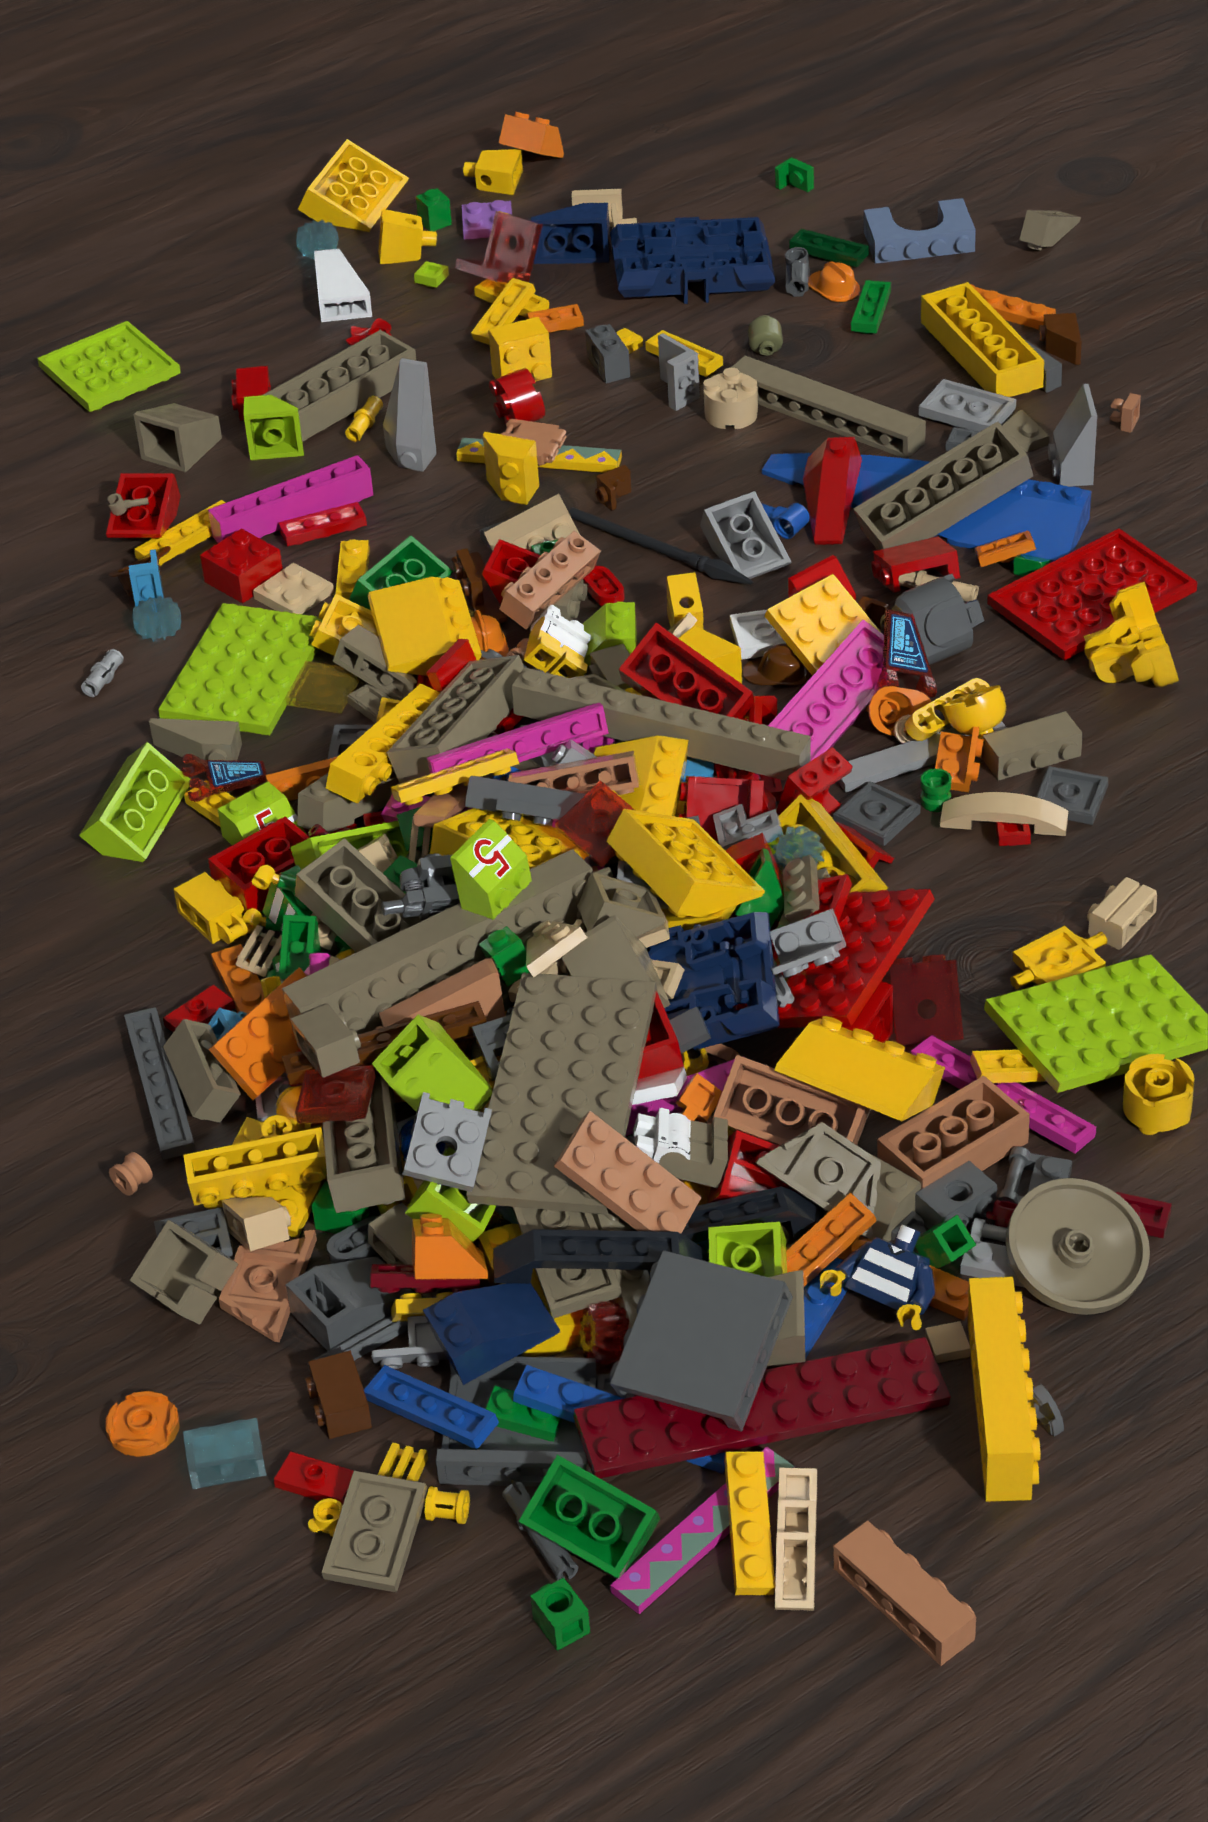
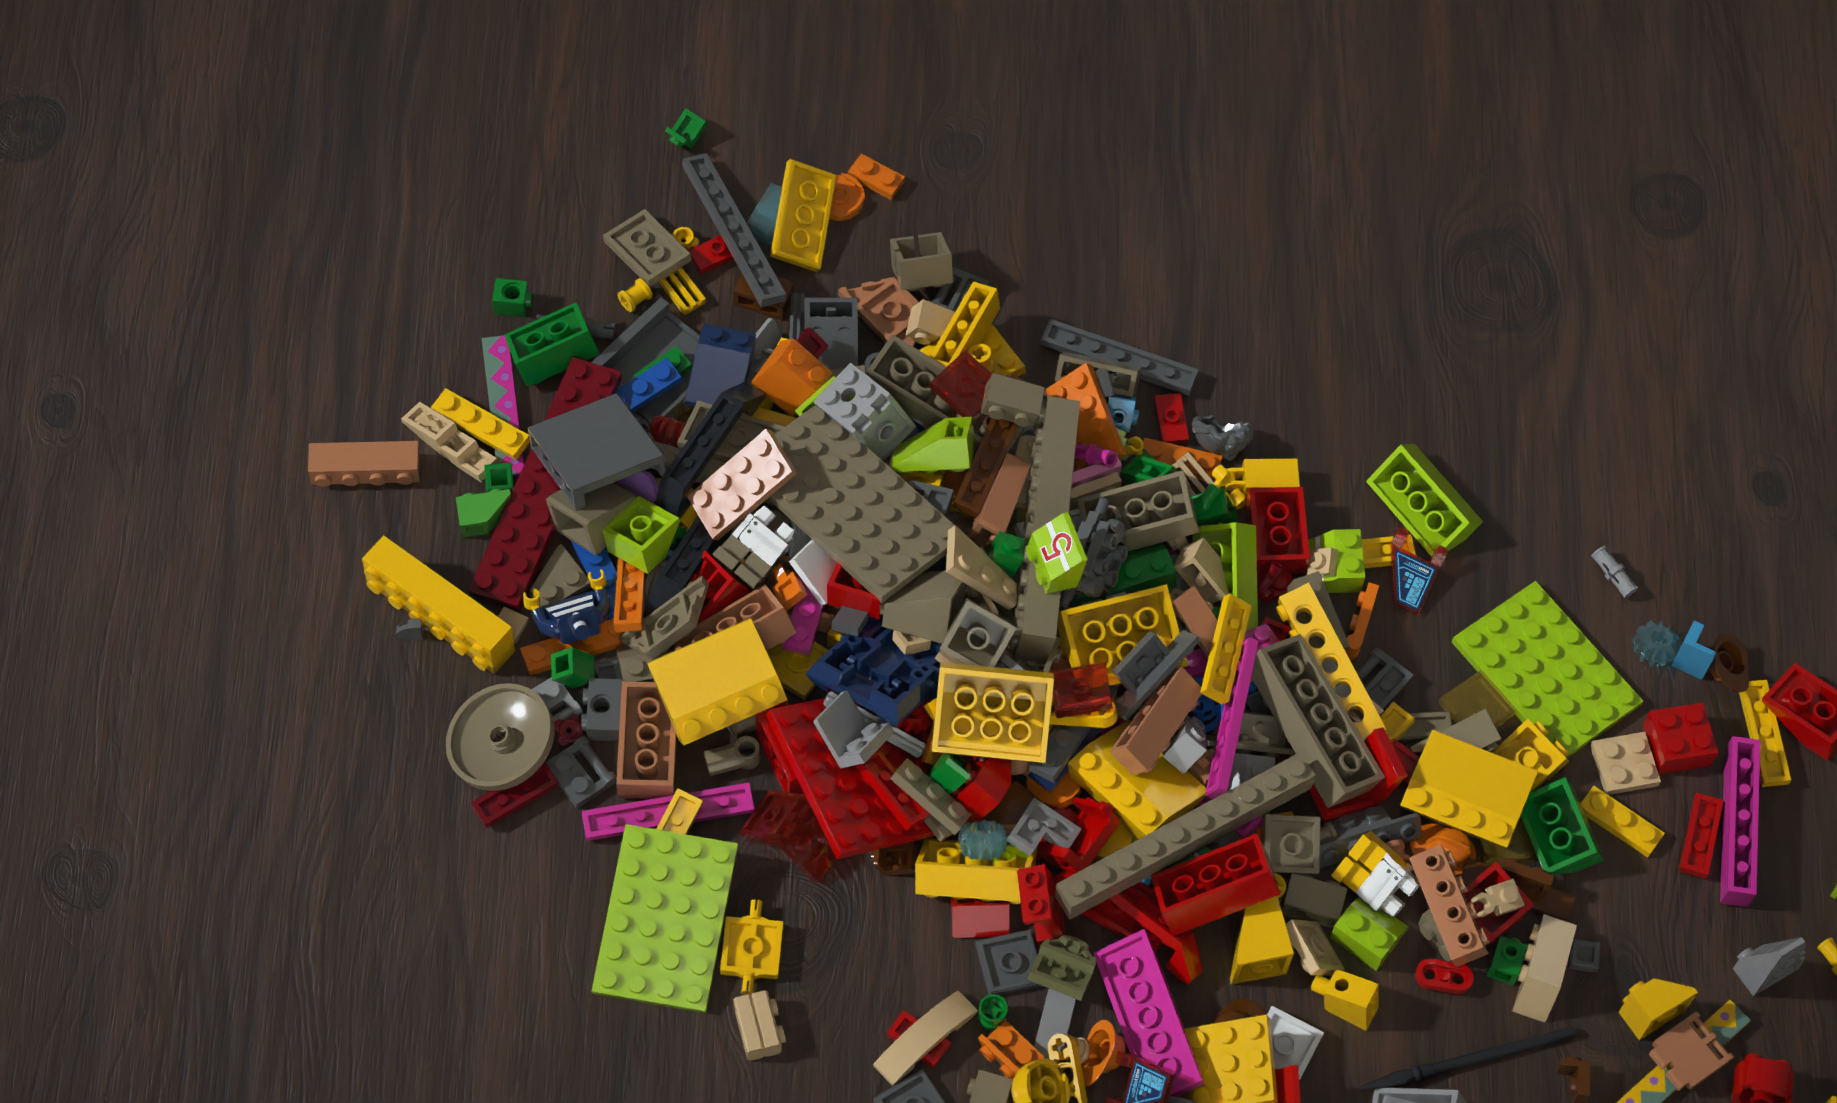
camera: 120 degrees right, 20 degrees up
(86, 1408) = (876, 176): none -> orange plate
(119, 506) = (1816, 686): dark tan hand -> none
(130, 1173) = (1045, 294): nougat wheel -> none
(169, 1611) = (687, 129): none -> green bracket
(188, 954) = (1222, 440): none -> dark grey hair
(198, 737) = (1467, 581): dark tan slope -> none
(207, 1412) = (803, 215): none -> yellow tile
(217, 1029) = (1104, 381): none -> dark grey tile
(274, 811) = (1324, 561): none -> tan plate
(282, 1458) = (734, 230): none -> dark grey plate
(431, 1407) = (689, 327): blue plate -> none
(515, 547) = (1500, 898): none -> tan plate
(802, 1451) = (498, 476): none -> green slope
(851, 1445) = (481, 512): none -> bright green slope
(856, 1331) = (560, 578): none -> dark tan wing
(865, 764) = (1064, 966): none -> olive slope
(1158, 1093) = (560, 890): yellow brick -> none

